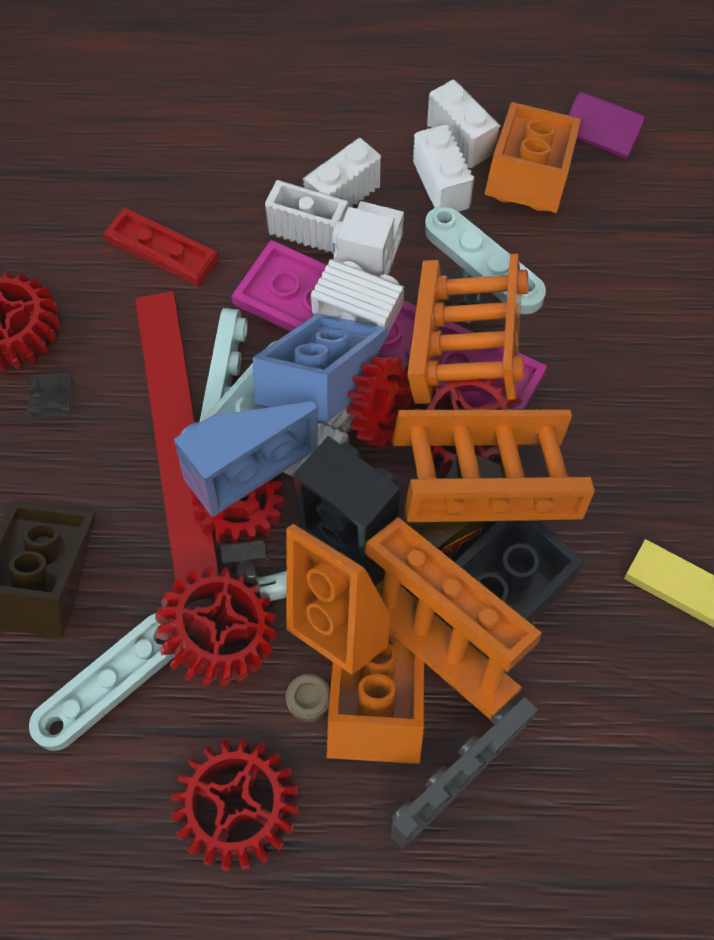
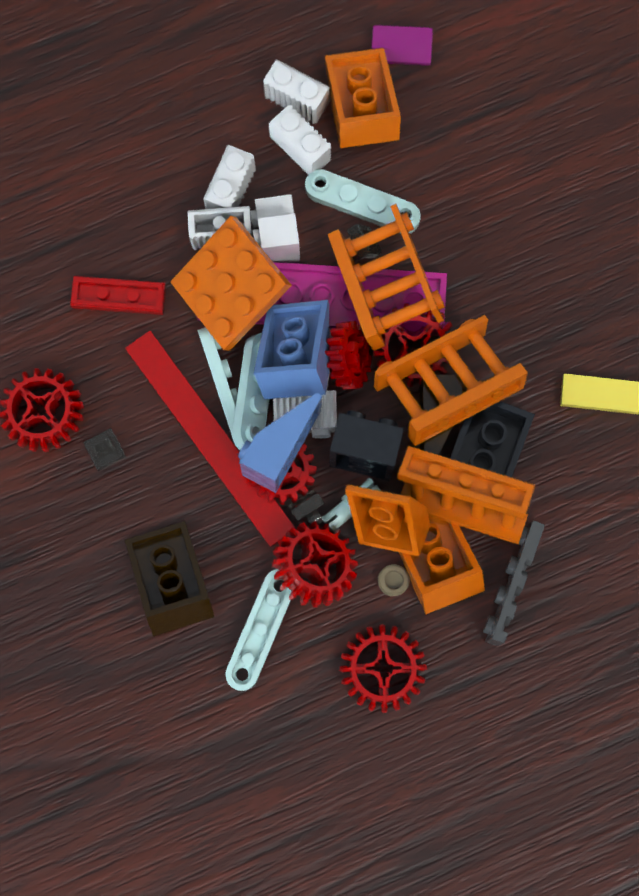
camera: 25 degrees left, 15 degrees up
(284, 266) = (230, 283): none -> orange plate
(357, 295) = (306, 280): white brick -> none

